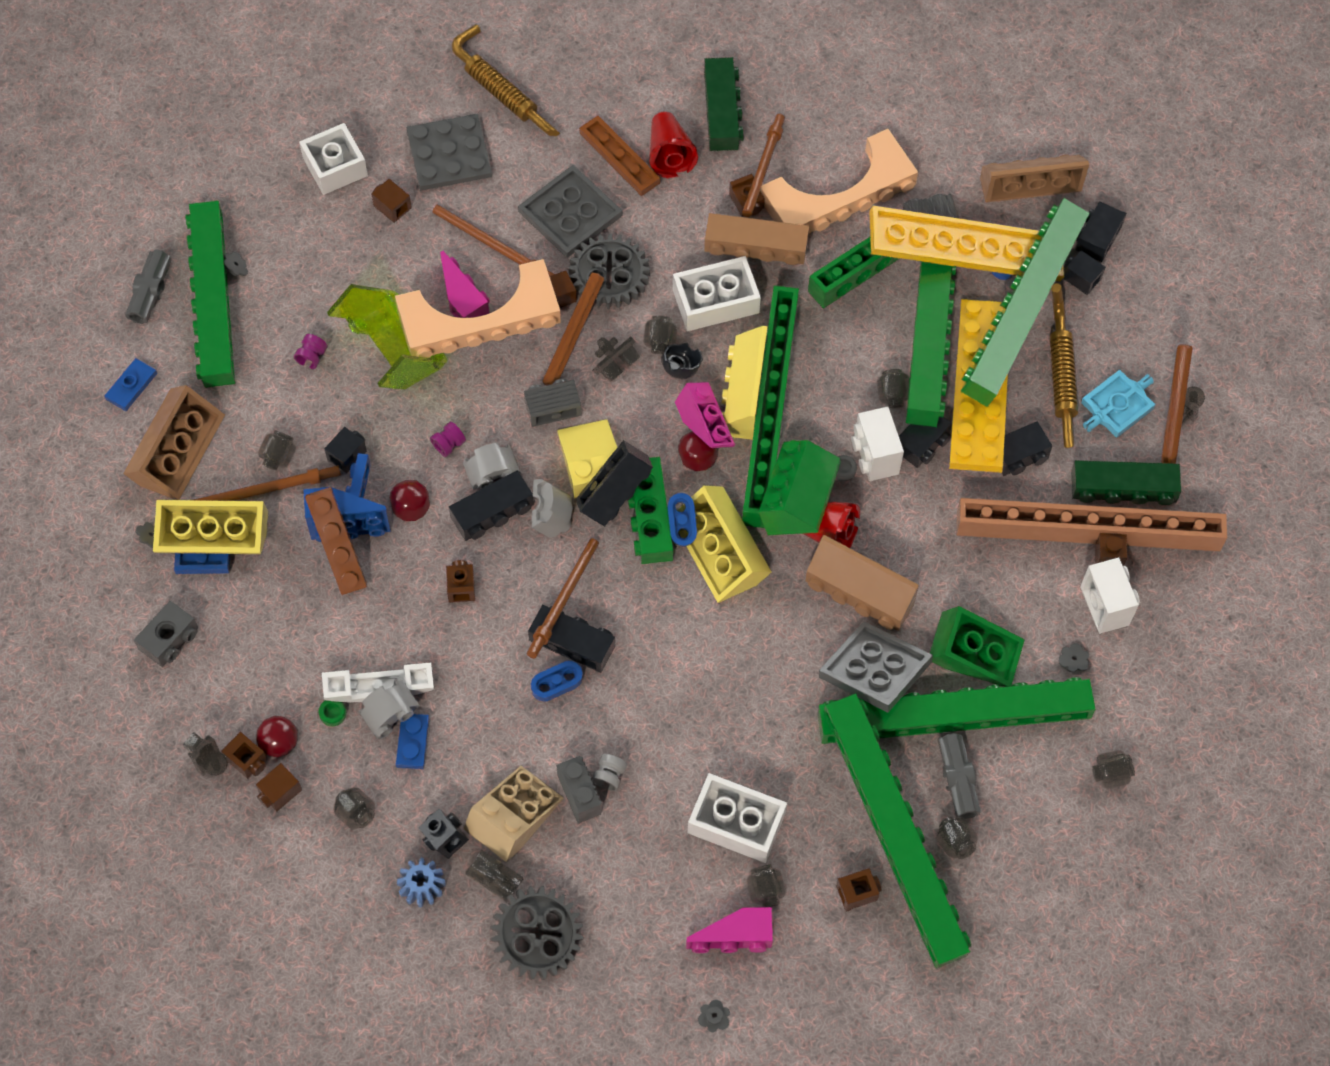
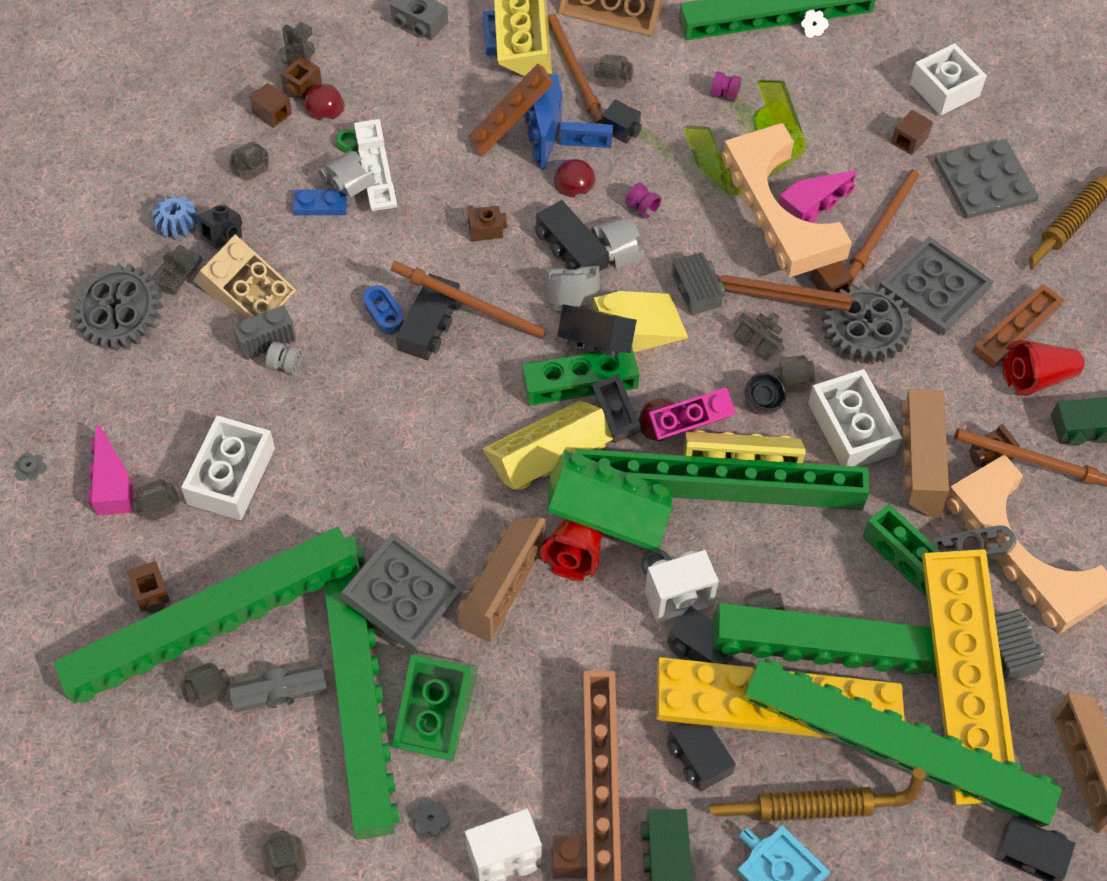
camera: 85 degrees right, 5 degrees down
(682, 520) = (566, 397): blue plate -> none
(692, 476) = (616, 408): none -> black brick
(839, 206) = (992, 534): none -> dark grey beam
(1083, 272) = (967, 828): black brick -> none

